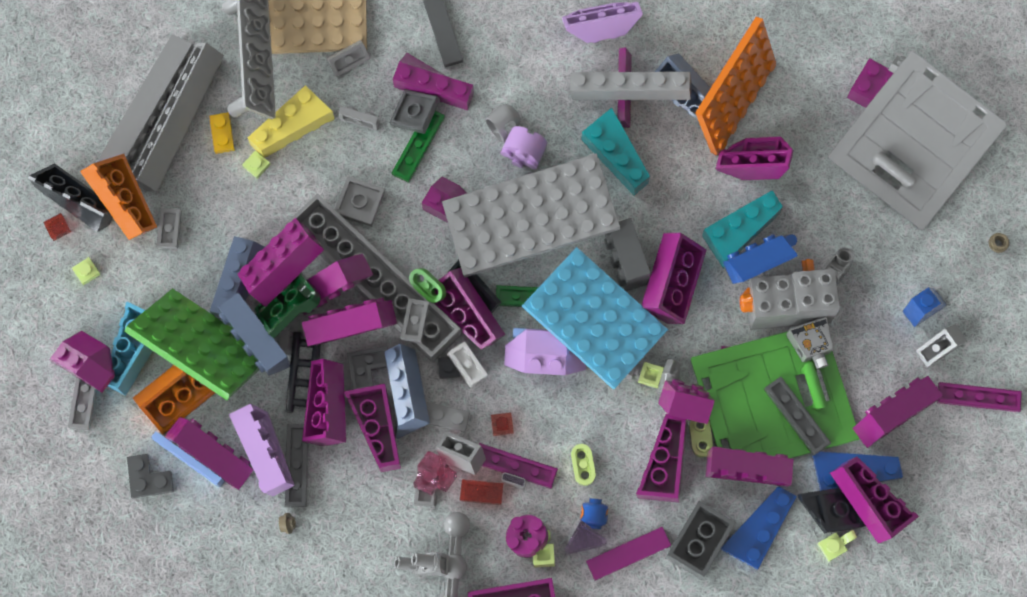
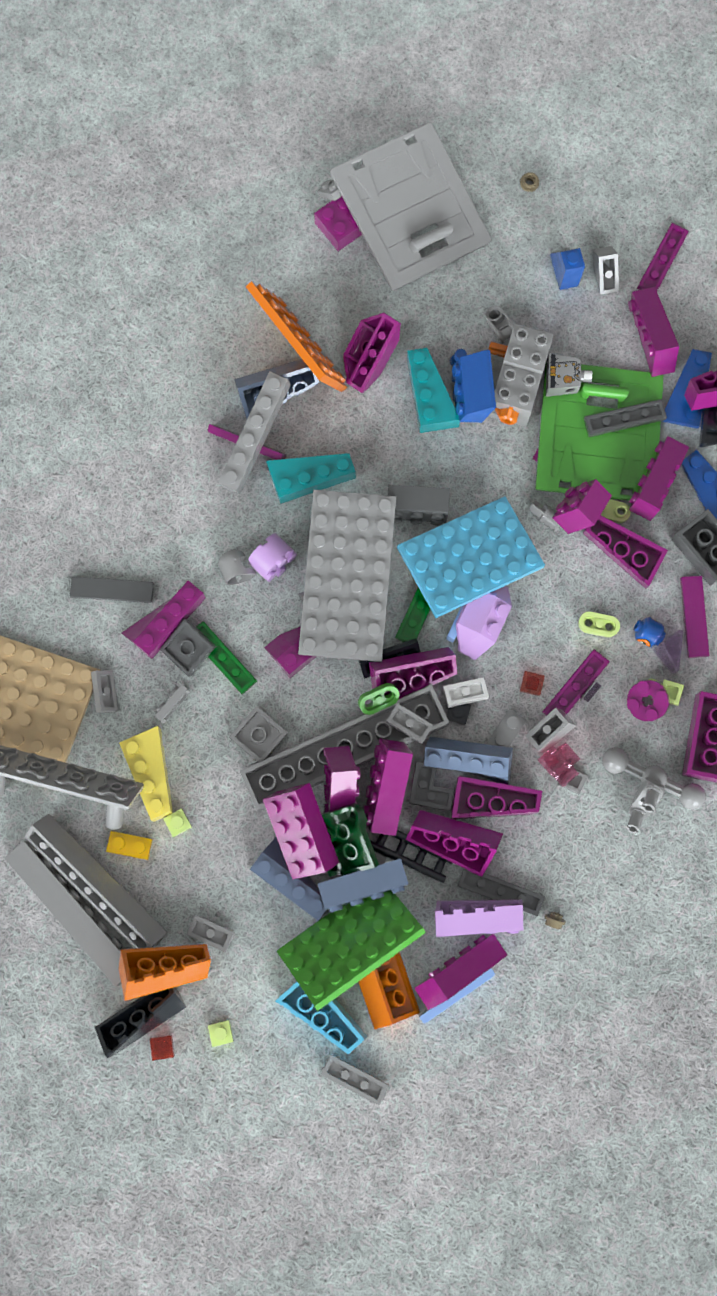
camera: 70 degrees left, 5 degrees up
(86, 360) = (319, 1064): magenta wedge -> none
(143, 482) = (462, 1047): dark grey plate -> none
(481, 492) = (591, 726): clear red plate -> none
(603, 21) = (170, 434): lavender wedge -> none
(650, 375) = (537, 530): yellowish green plate -> none
(674, 278) = (457, 470): magenta brick -> none

